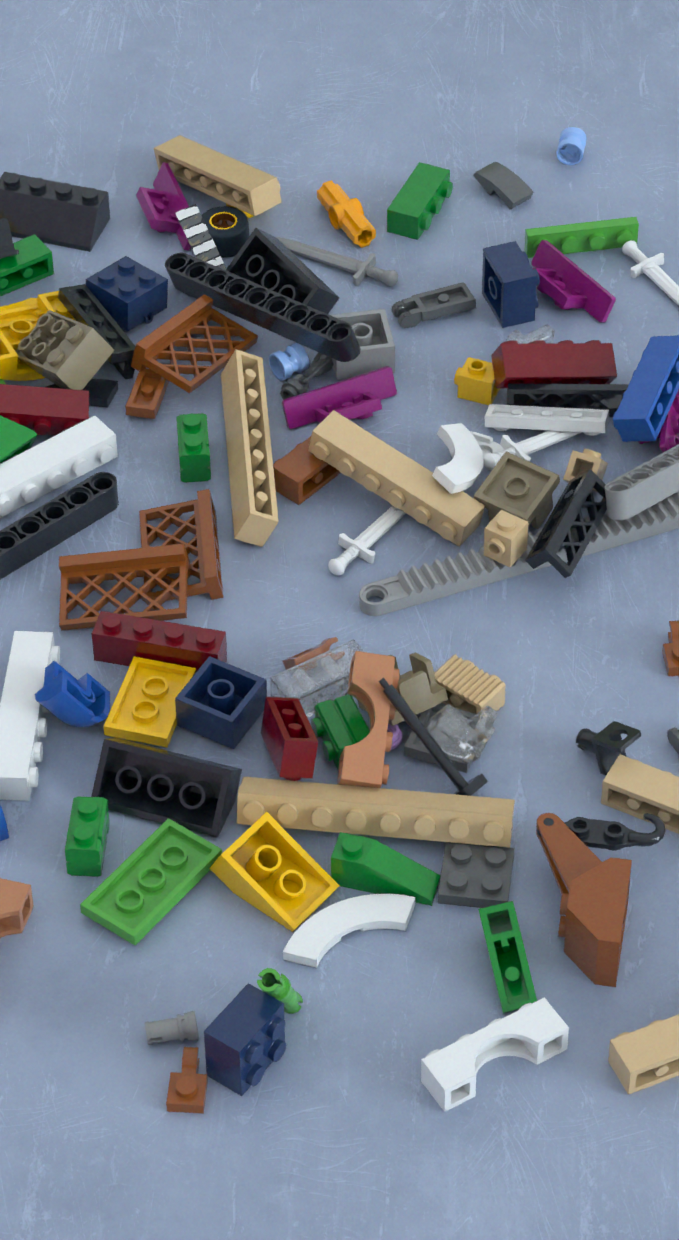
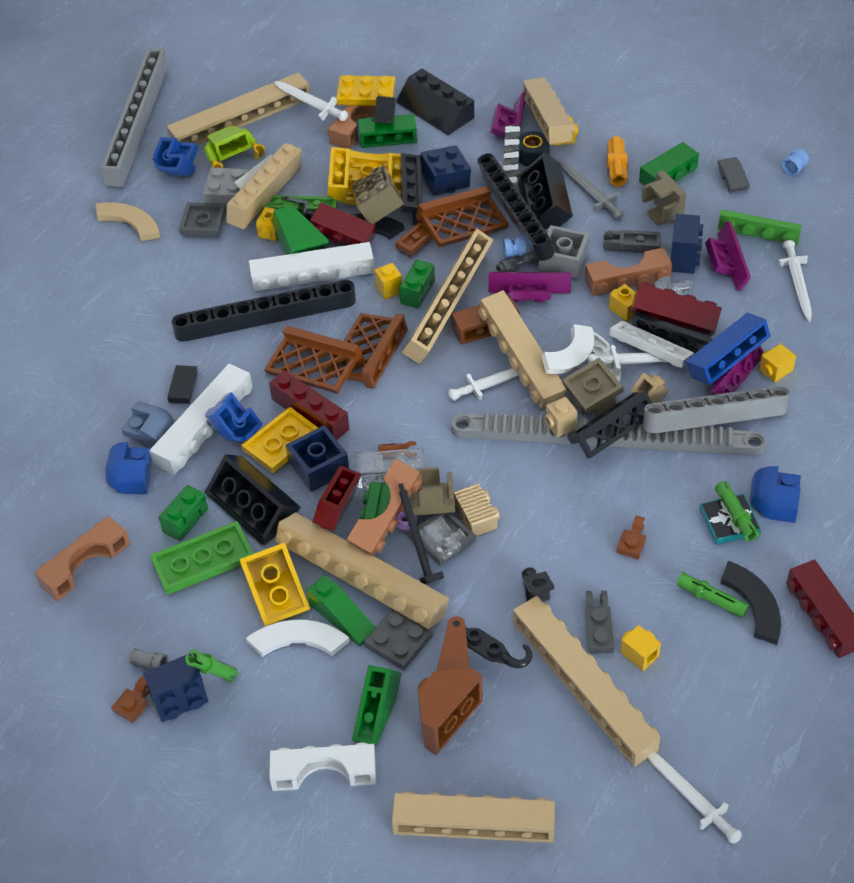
camera: 30 degrees right, 5 degrees up
(151, 457) = (388, 280): none -> yellow brick
(432, 359) = (604, 277): none -> nougat arch
(449, 238) = (667, 197): none -> dark tan panel

